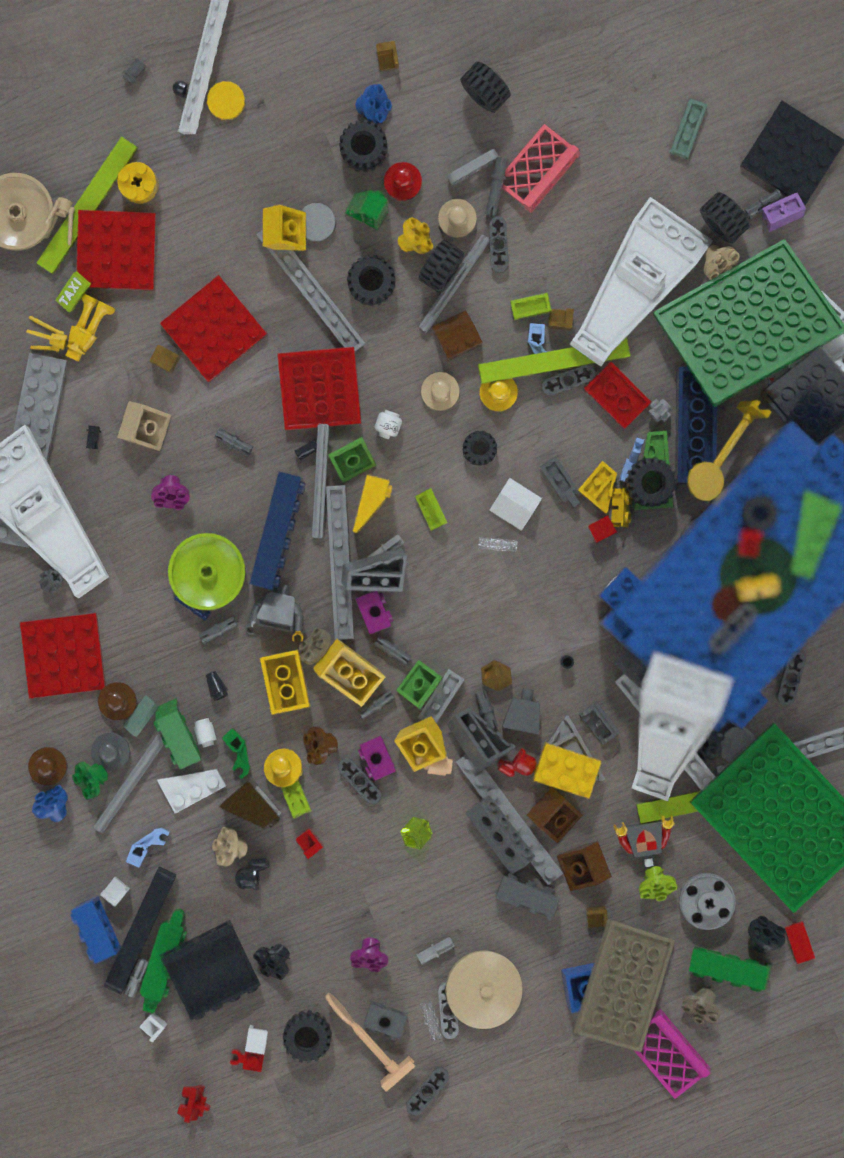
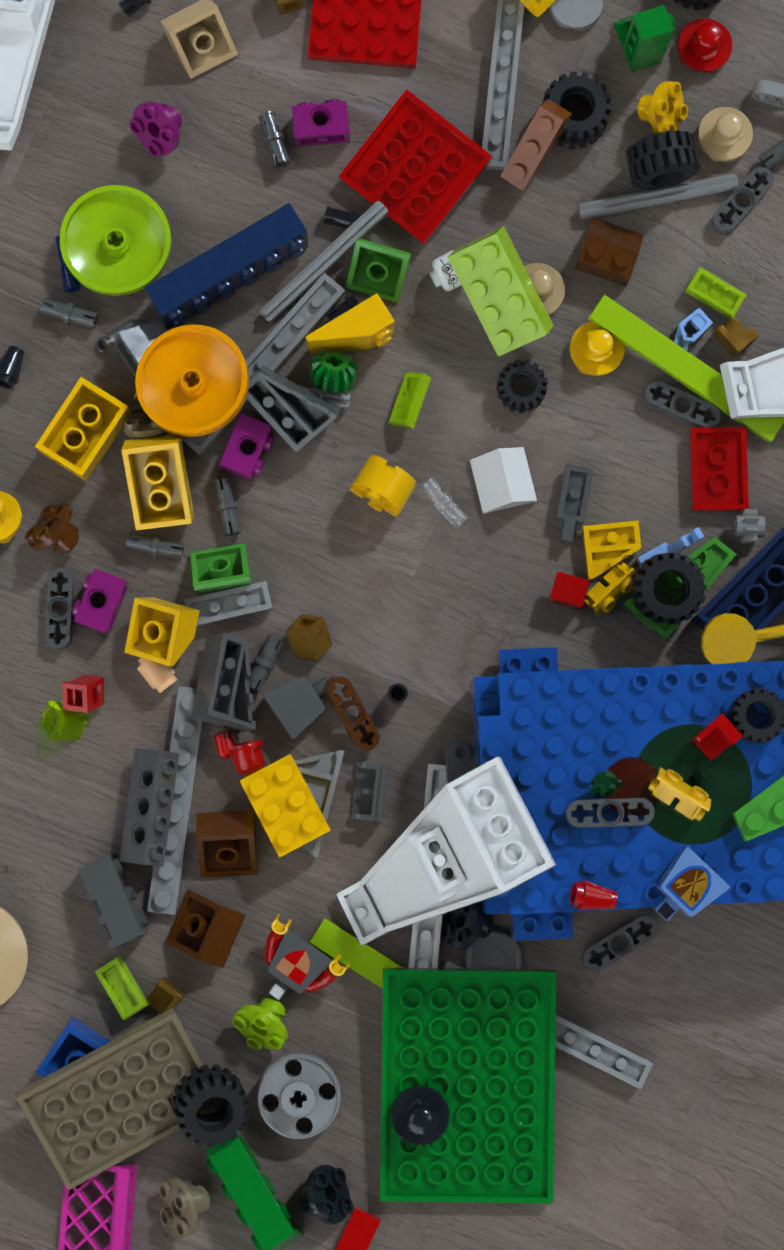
camera: 40 degrees right, 5 degrees down
(247, 422) = (333, 132): none -> magenta brick
(319, 607) = (192, 380): none -> light orange dish
(354, 495) = (348, 304): none -> black pin
(370, 320) = (536, 144): none -> dark orange brick
(380, 533) = (333, 372): none -> green gear
(414, 811) = (83, 693): none -> red brick
(426, 413) = (500, 291): none -> lime brick
(461, 566) = (383, 485): none -> yellow brick
(545, 695) = (354, 734): none -> reddish brown beam
(571, 933) = (122, 988): none -> lime plate
(683, 947) = (217, 1125): none -> black tyre
(718, 617) = (605, 784): none -> dark green plate
(762, 676) = (592, 896): none -> red cone
(774, 854) = (420, 1115): none -> black plate
(803, 627) = (688, 885): none -> torso

